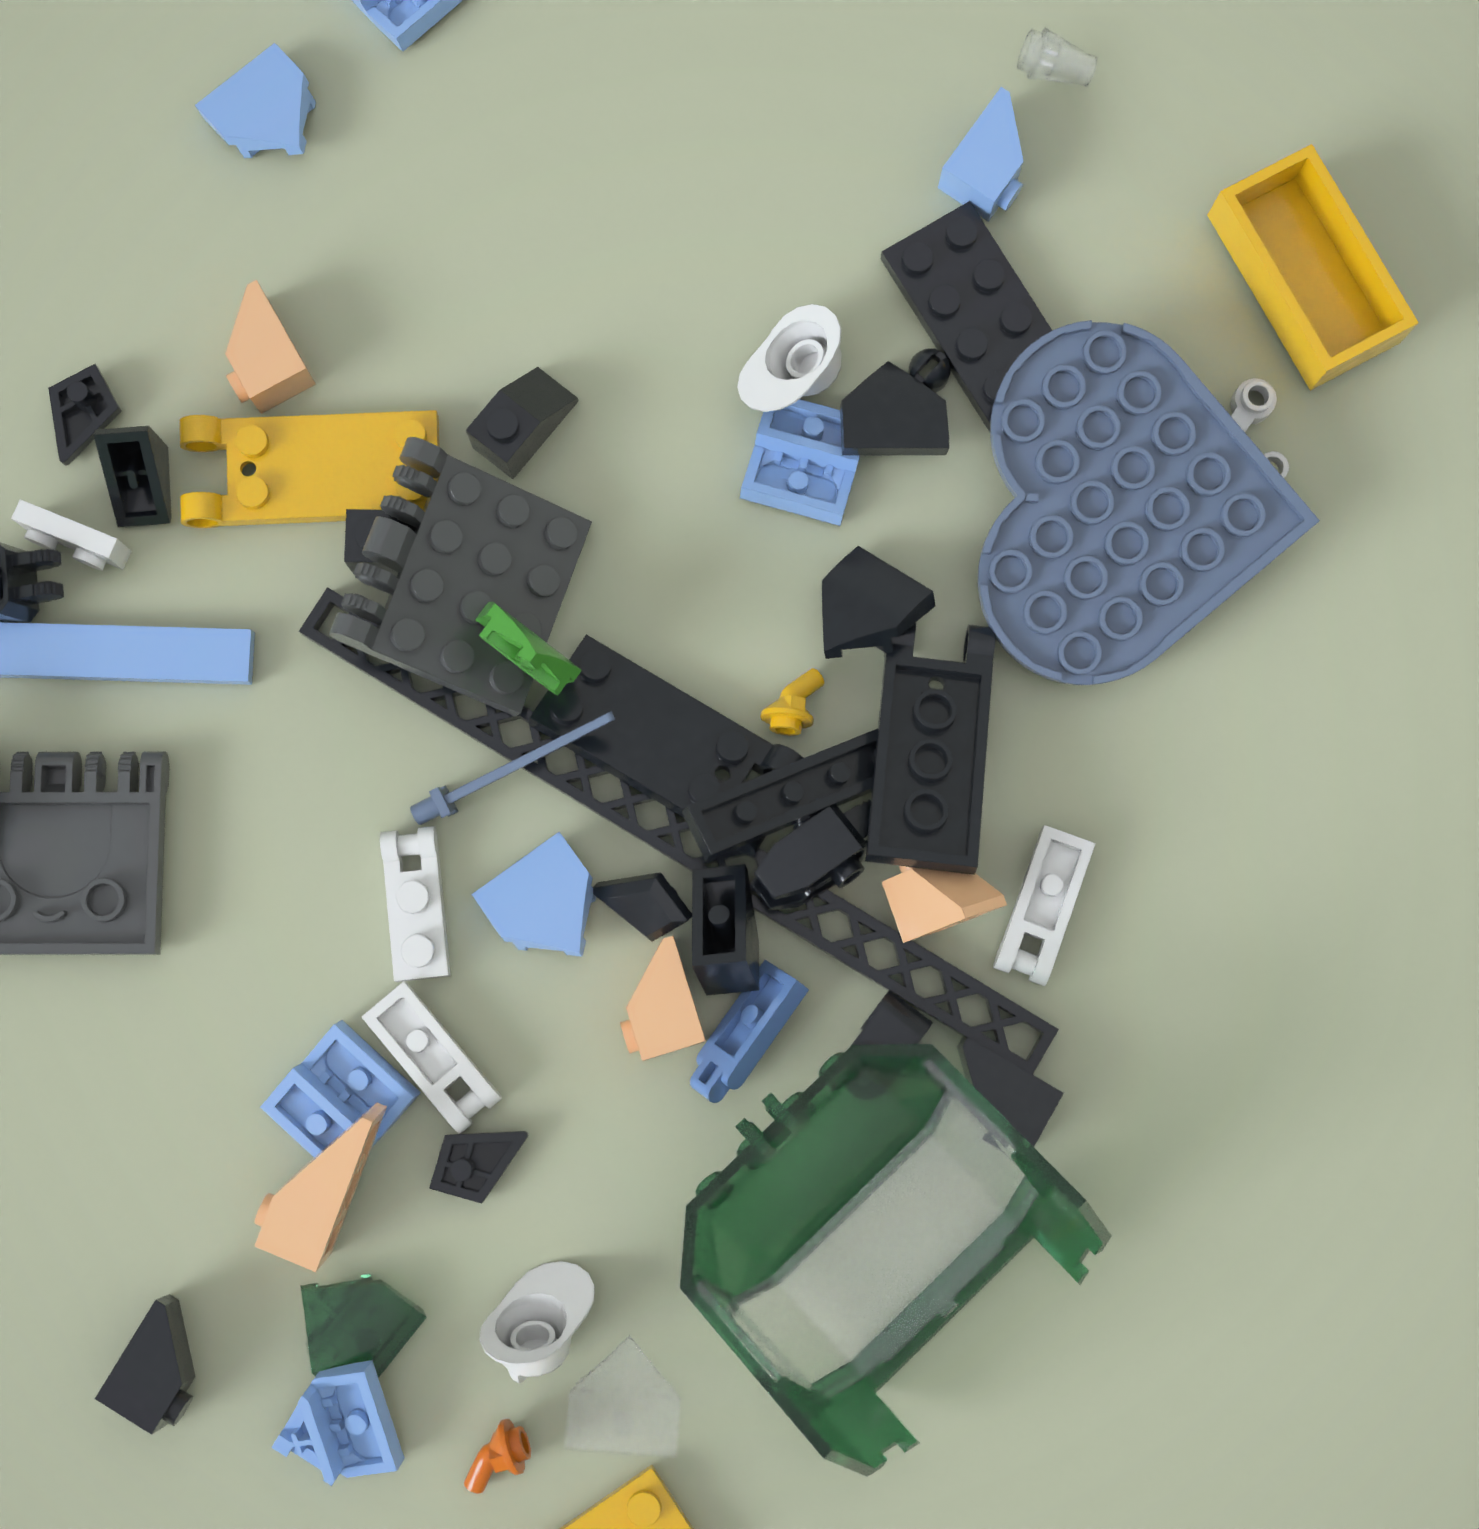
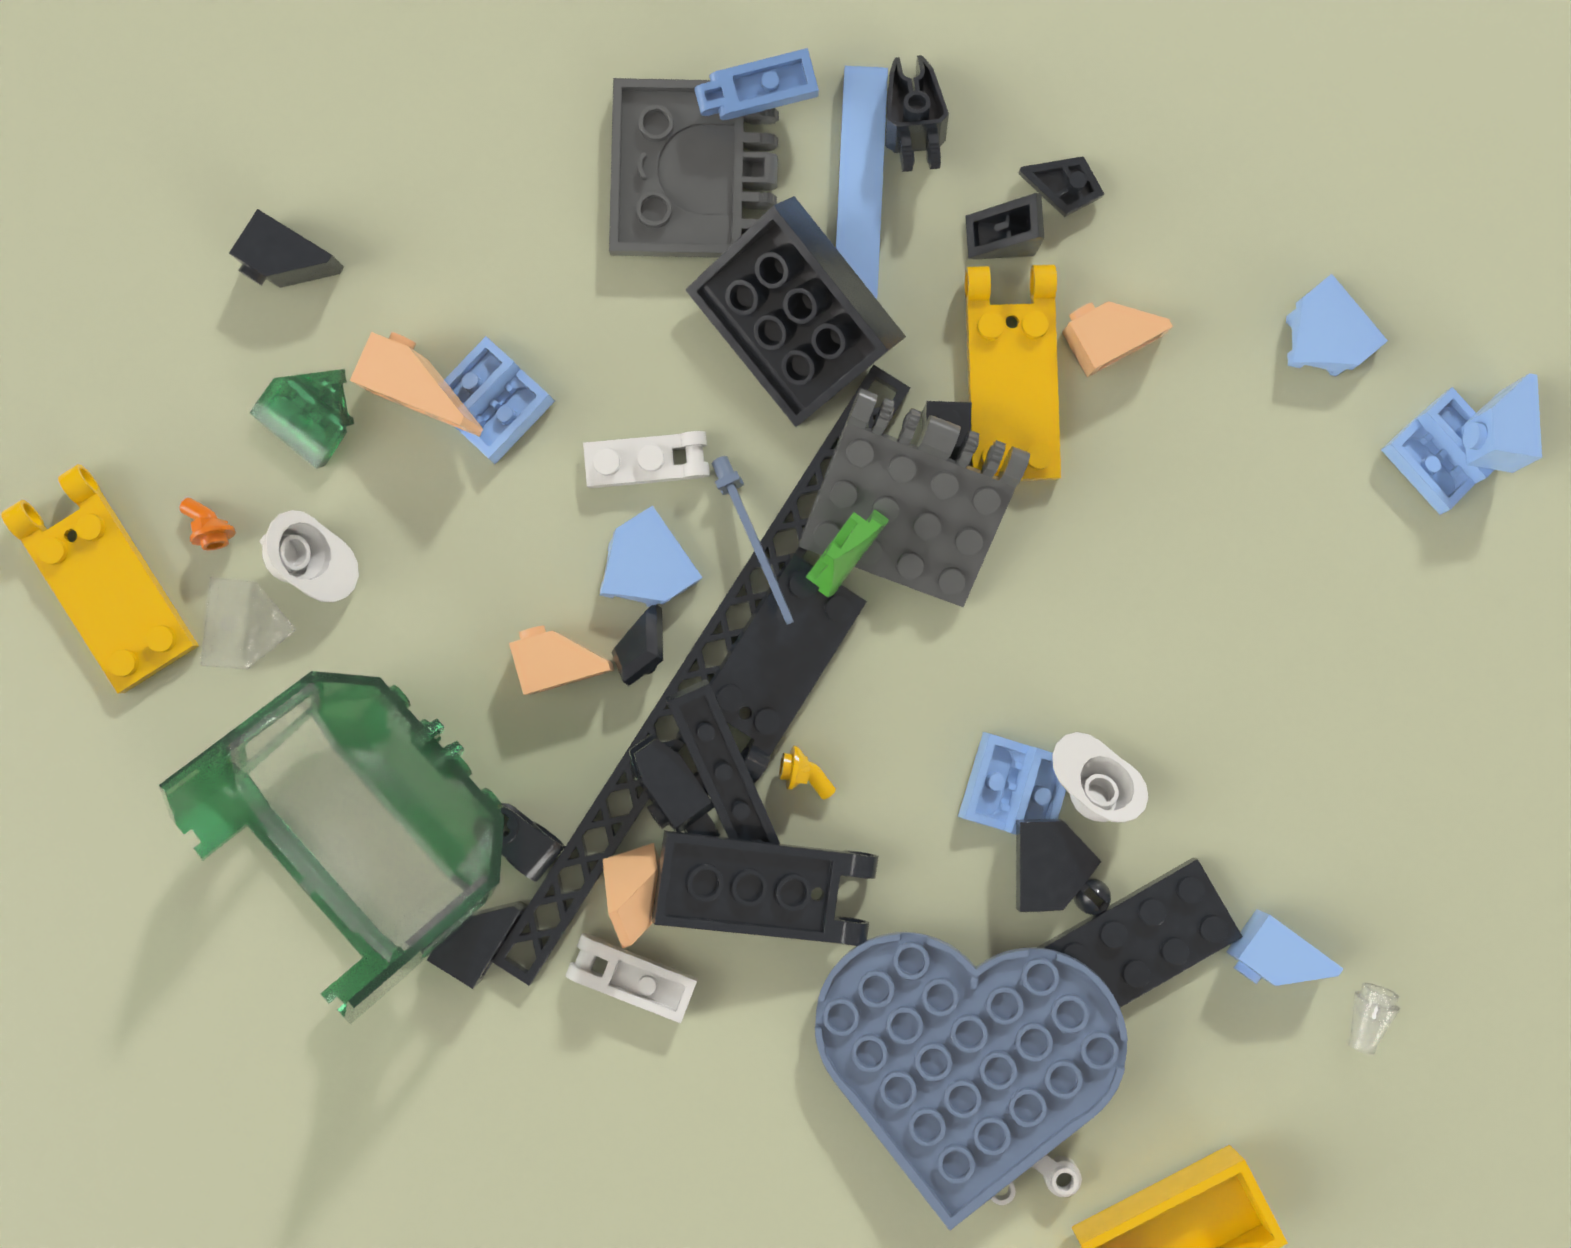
camera: 90 degrees right, 5 degrees up
(50, 529) = (961, 159): white plate -> none
(234, 722) = (794, 310): none -> black slope
(343, 1425) = (233, 403): light blue slope -> none
(430, 1055) = (522, 472): white plate -> none
(474, 1162) = (437, 507): black piece -> none
(520, 420) = (1052, 549): black slope -> none
(724, 930) = (615, 712): black slope -> none
(746, 1033) = (534, 728): medium blue hinge -> none
(869, 604) = (886, 839): black slope -> none

